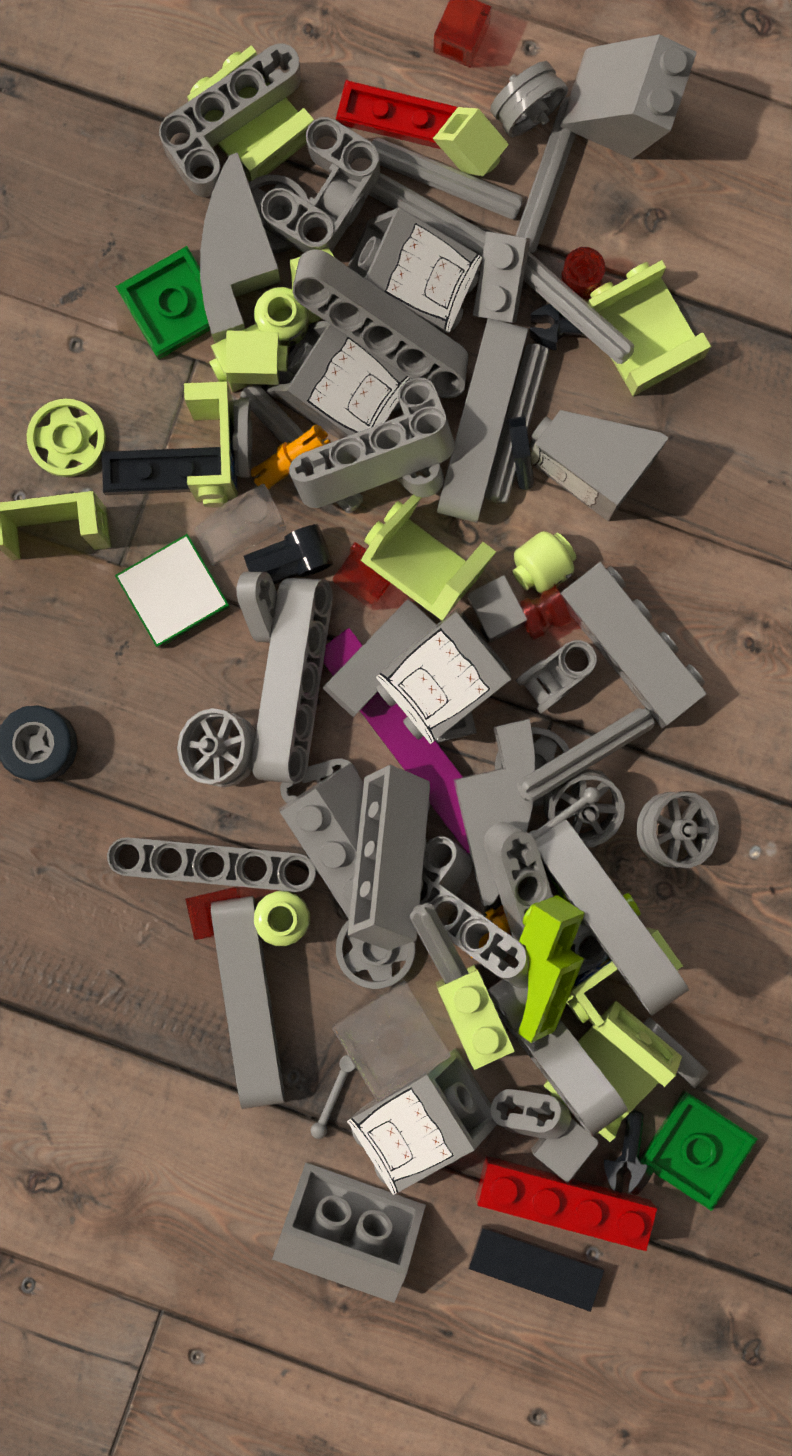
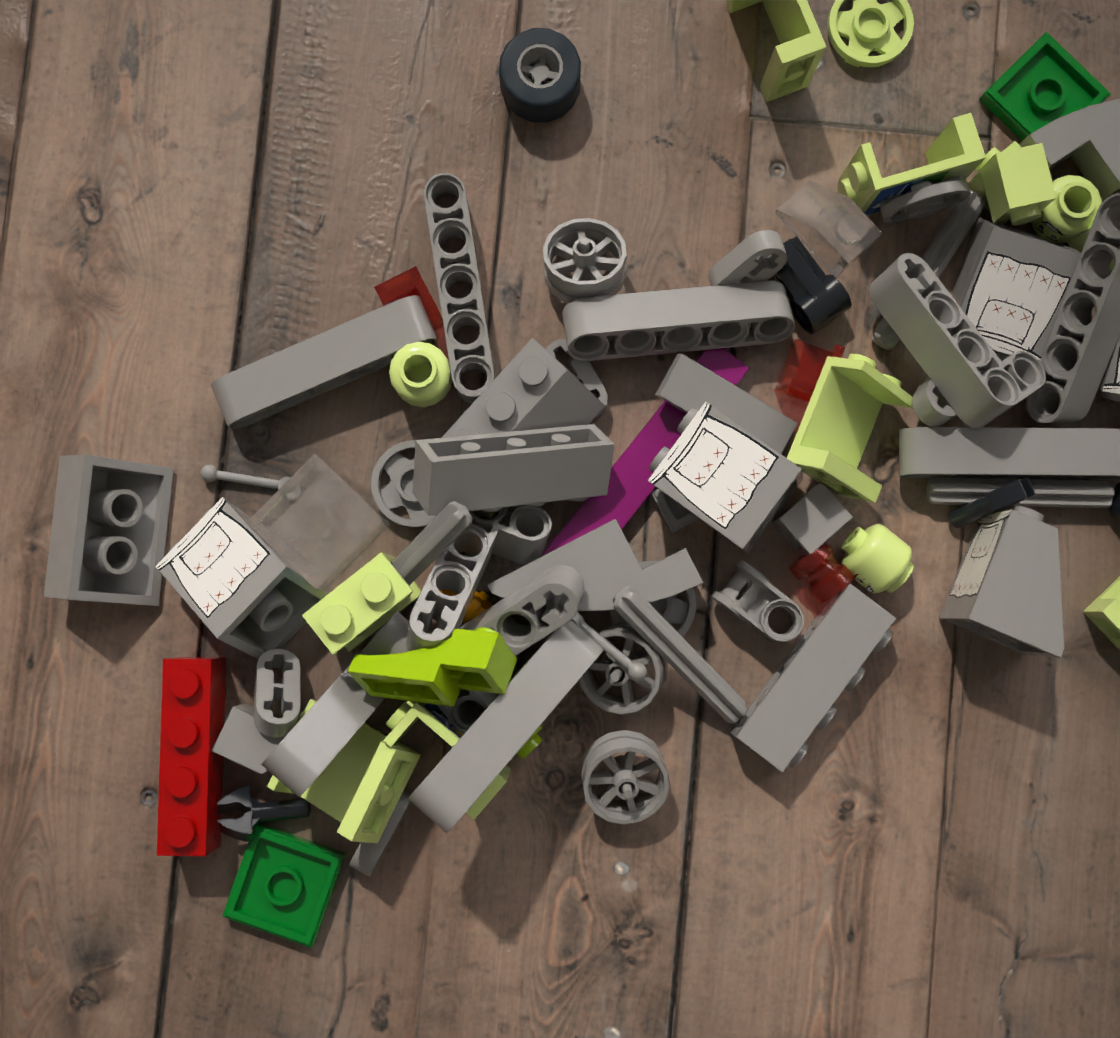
camera: 70 degrees right, 0 degrees up
(156, 469) = (859, 116): black tile -> none
(172, 591) = (738, 175): white tile -> none
(277, 466) = (896, 243): light orange pin -> none
(536, 1268) = (118, 741): black tile -> none

